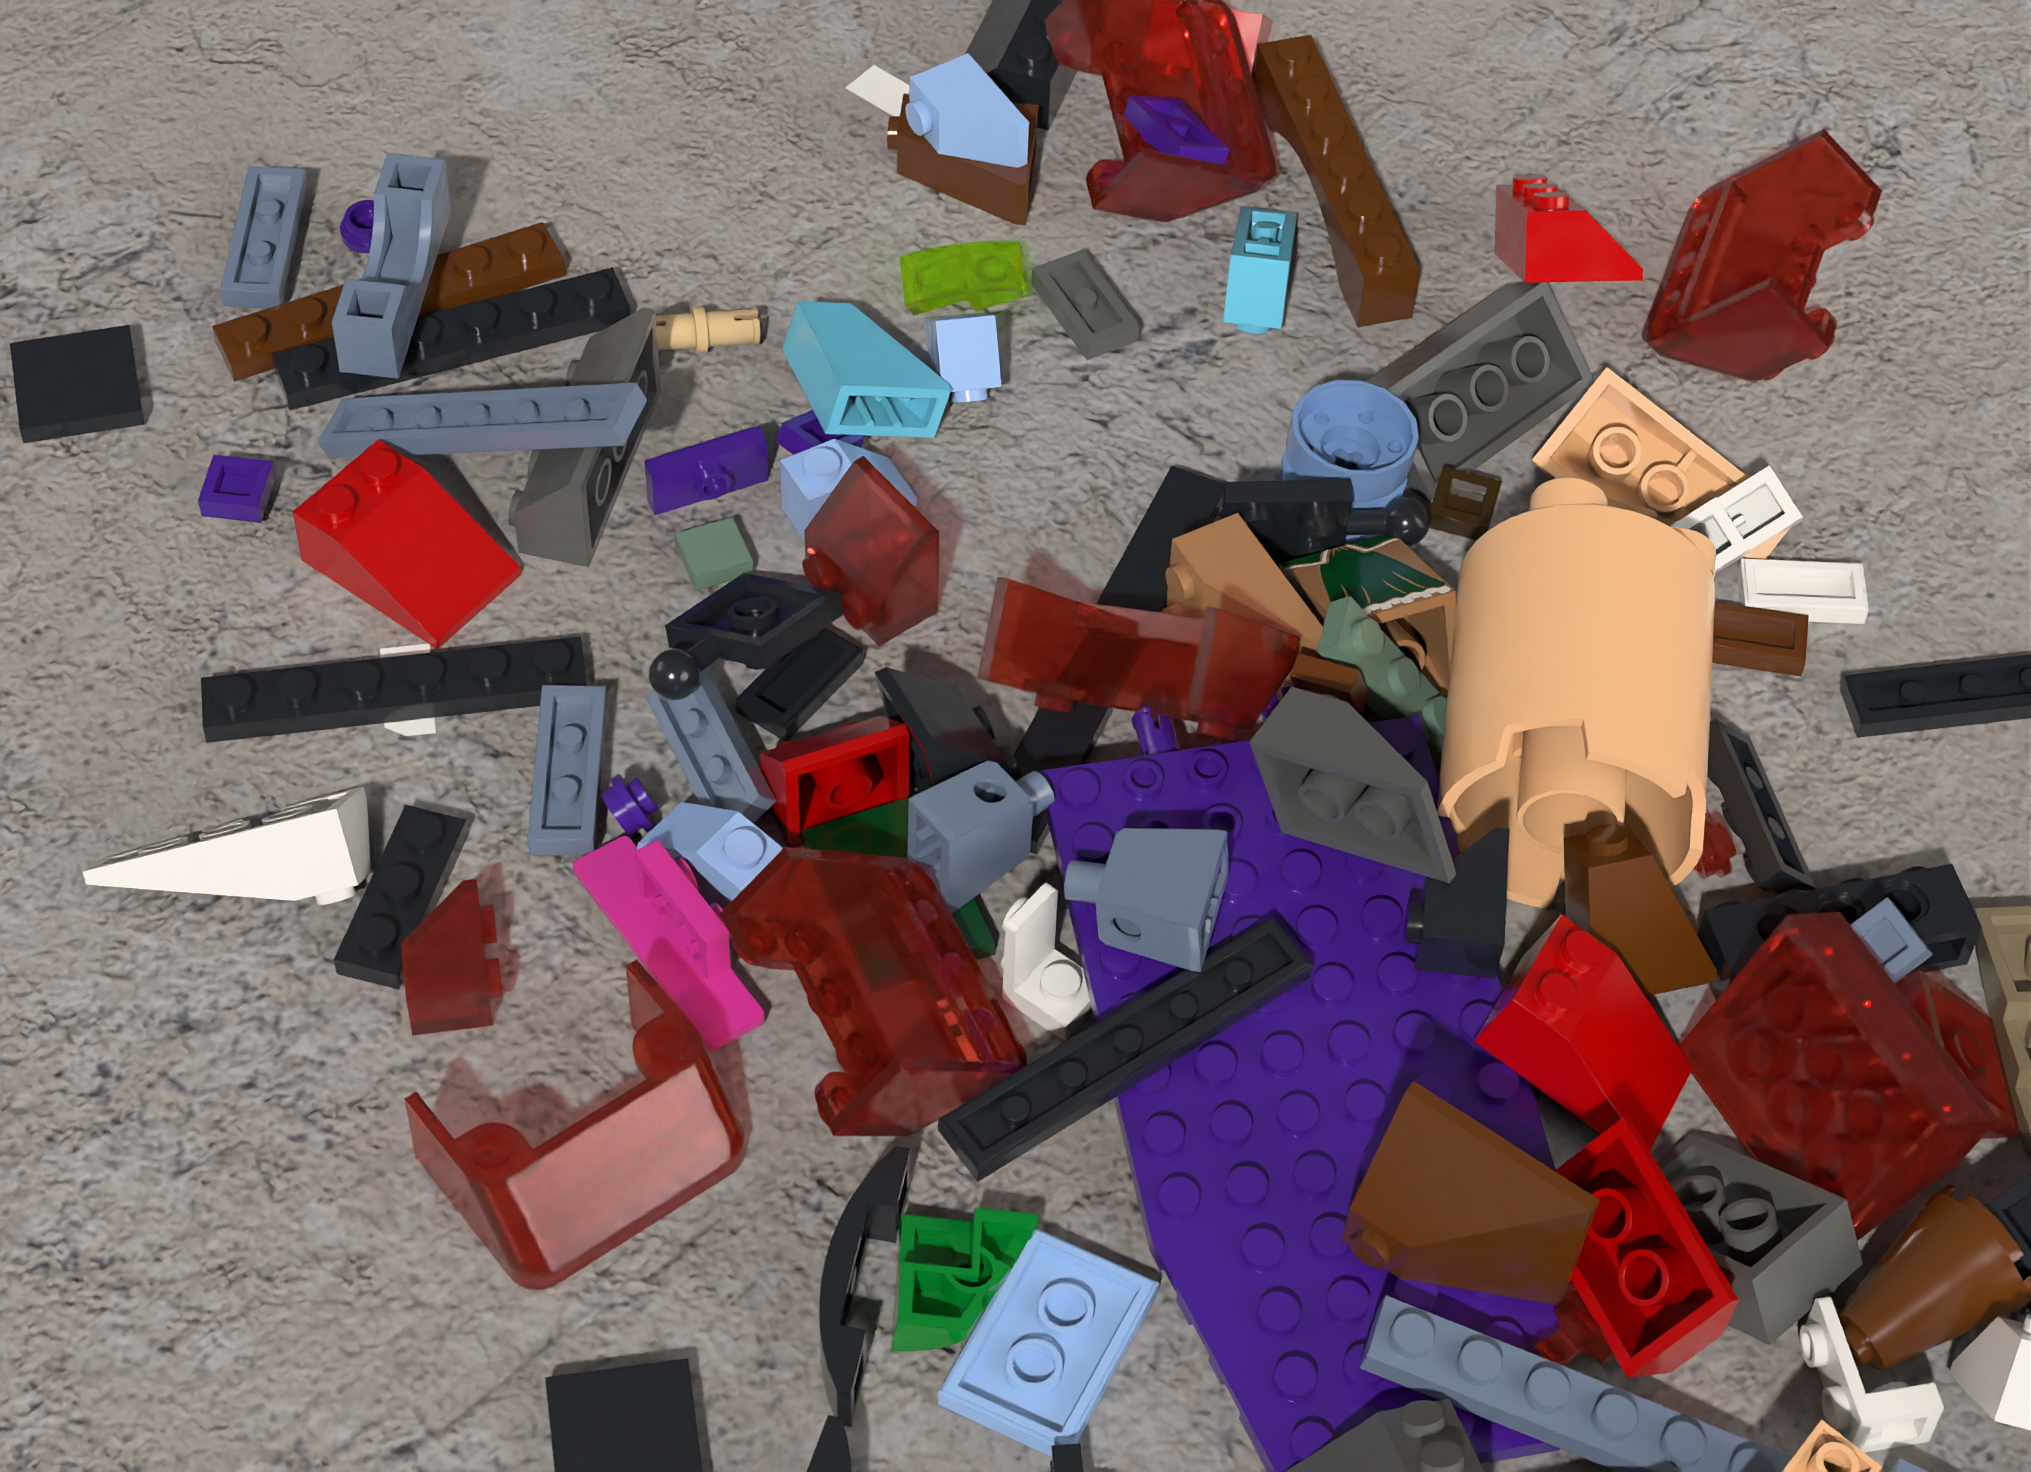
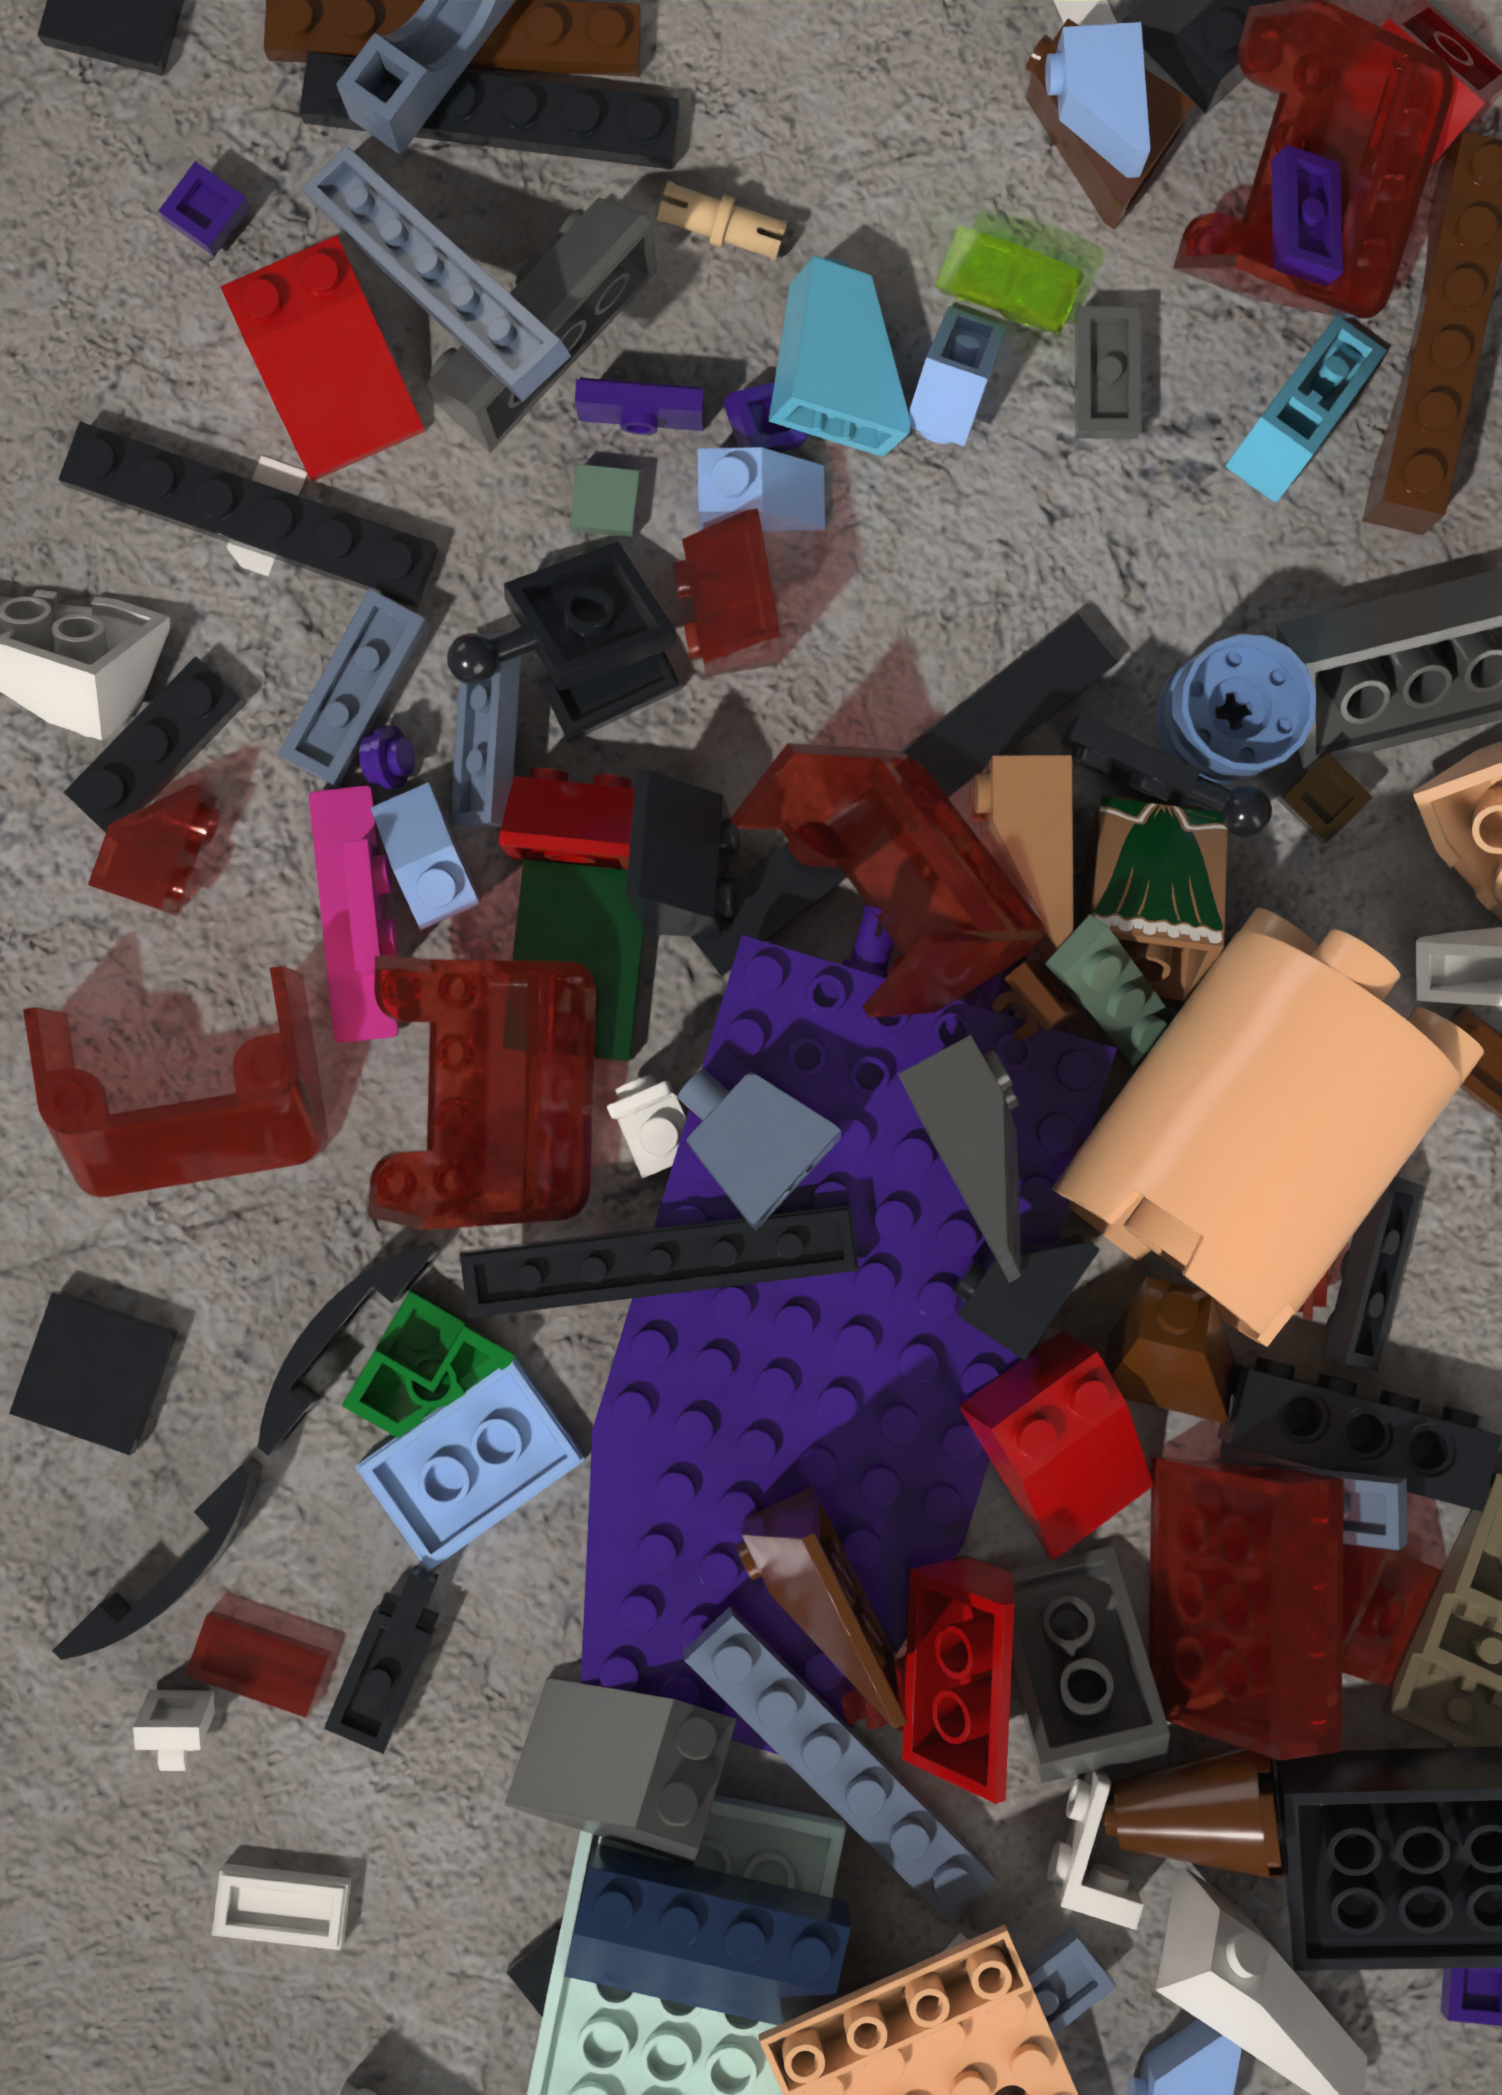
camera: 30 degrees right, 35 degrees up
(974, 828) = (624, 964): sand blue torso -> none

